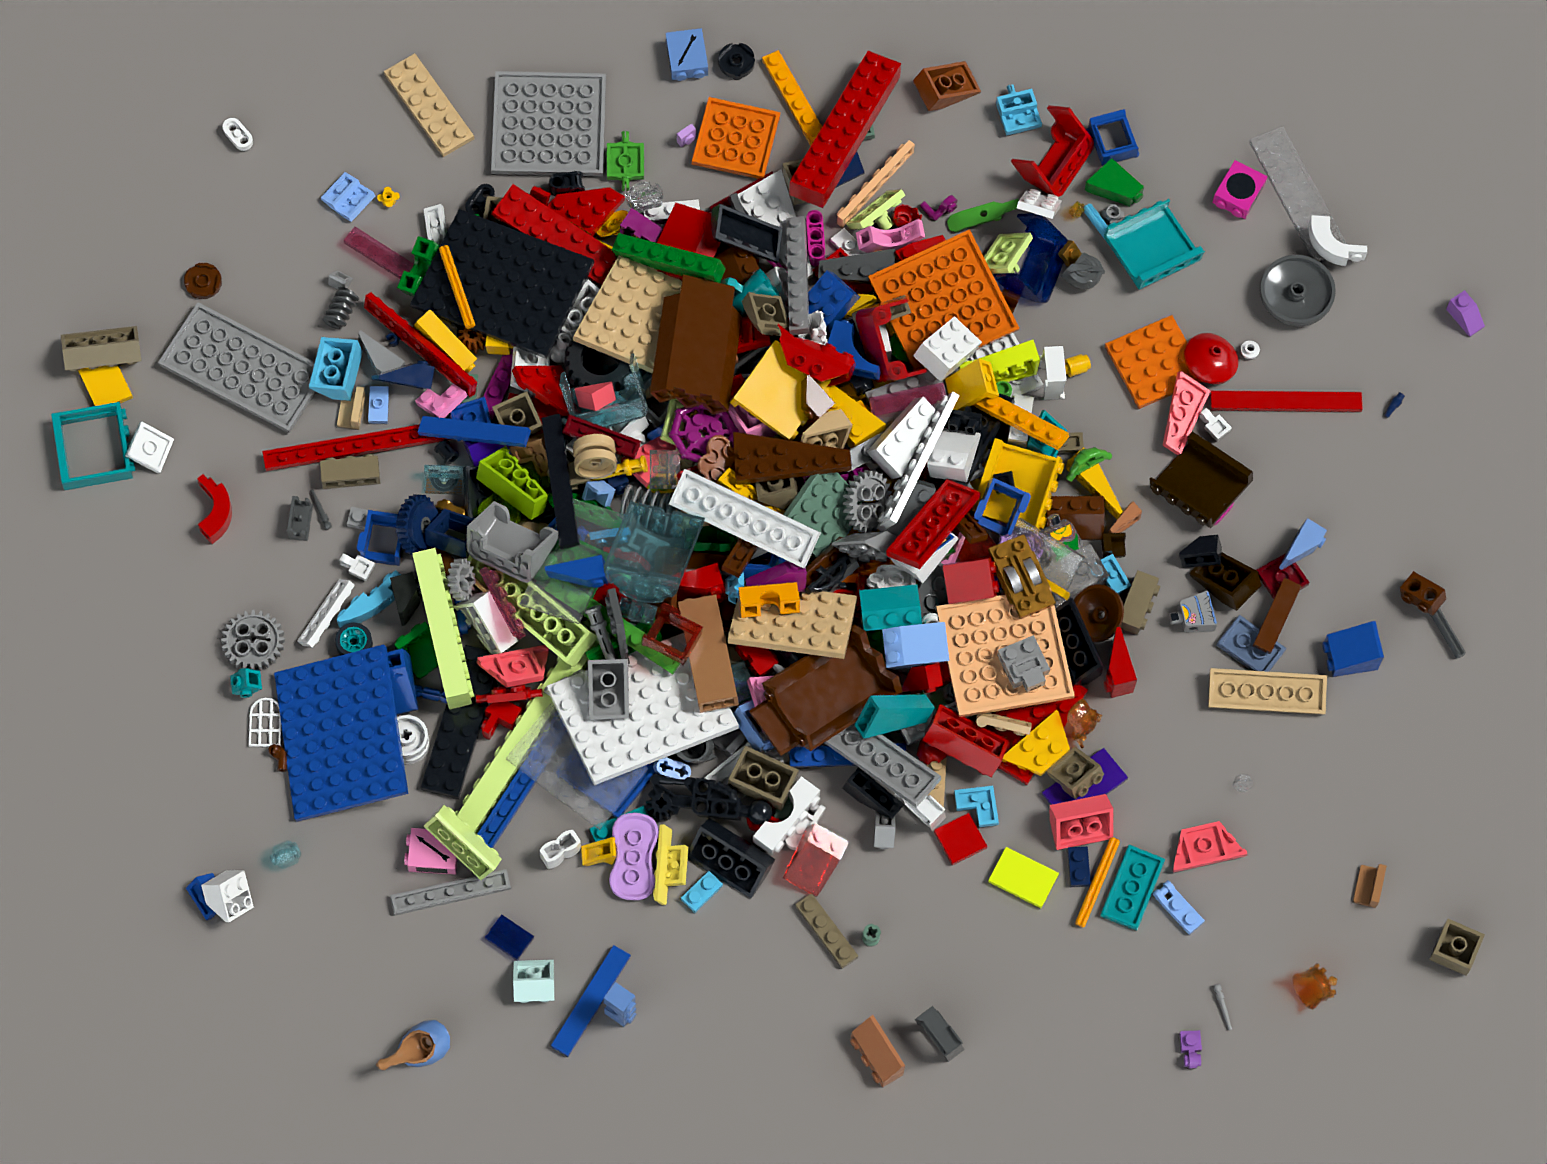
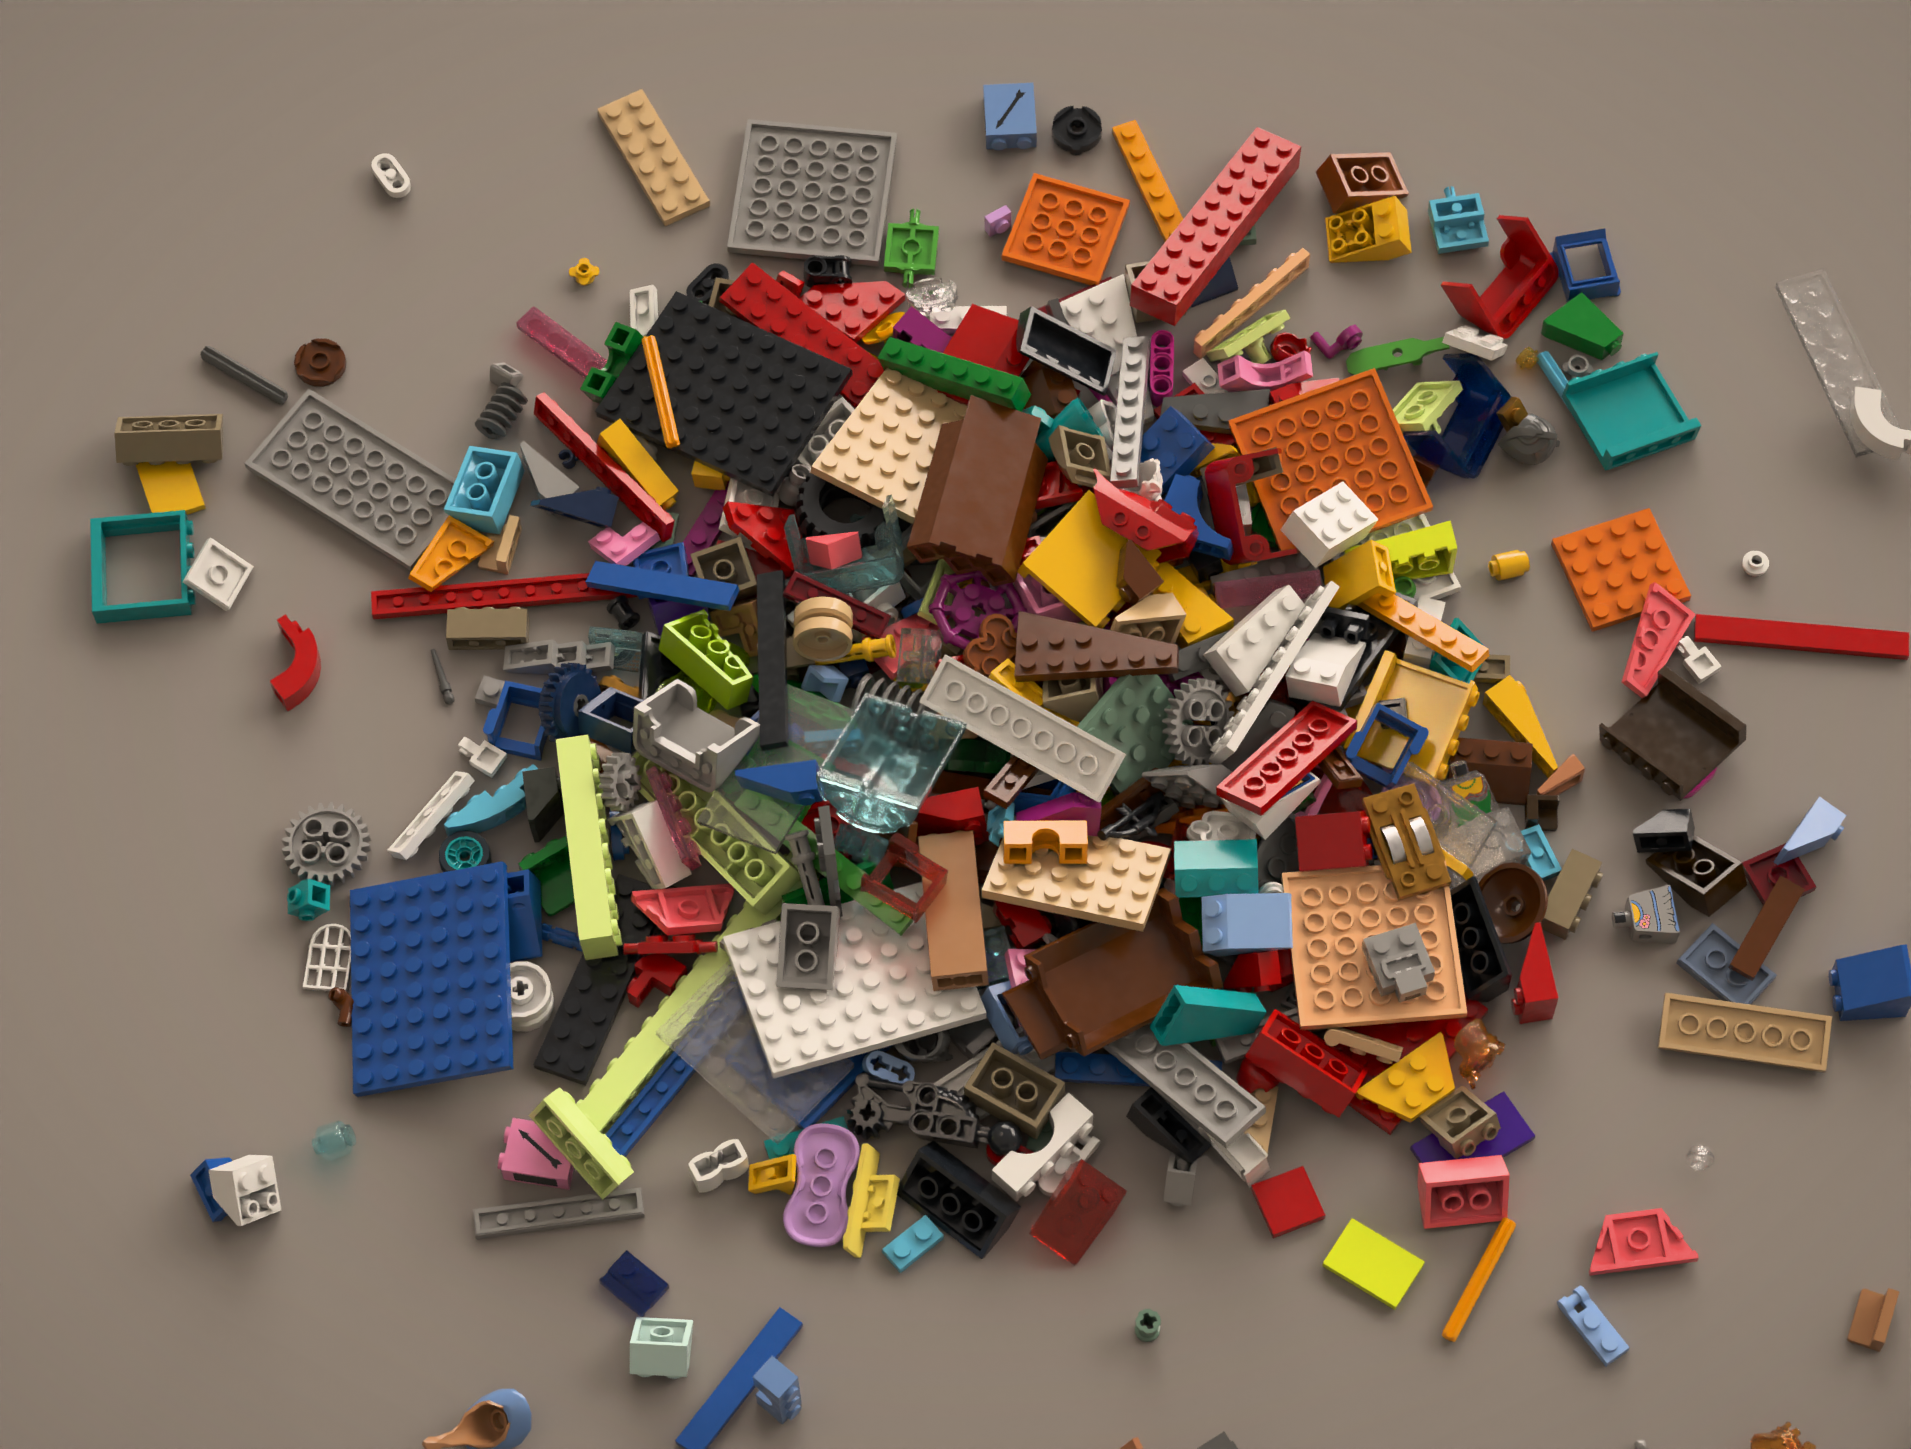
camera: 10 degrees right, 5 degrees down
(148, 295) = (244, 375): none -> dark grey axle
(299, 519) = (410, 686): dark grey hinge -> none
(315, 418) = (448, 553): none -> light orange wing
(348, 197) = (529, 267): light blue slope -> none
(378, 404) = (538, 543): light blue plate -> none
(400, 489) = (545, 655): none -> light grey slope
(472, 344) = (668, 460): dark orange gear -> none
(826, 931) = (1085, 1314): dark tan plate -> none
(955, 124) = (1369, 232): none -> yellow slope
(980, 799) = (1323, 1149): medium azure plate -> none
(1054, 363) = (1477, 559): white piece -> none
(1079, 866) = (1454, 1255): dark blue plate -> none
(1086, 459) = (1512, 691): bright green piece -> none
(1132, 887) = (1529, 1291): teal tile -> none
(1208, 365) = (1699, 570): red dish -> none
(1239, 189) = (1757, 348): dark pink brick -> none
(1297, 290) = (1828, 487): dark grey dish -> none

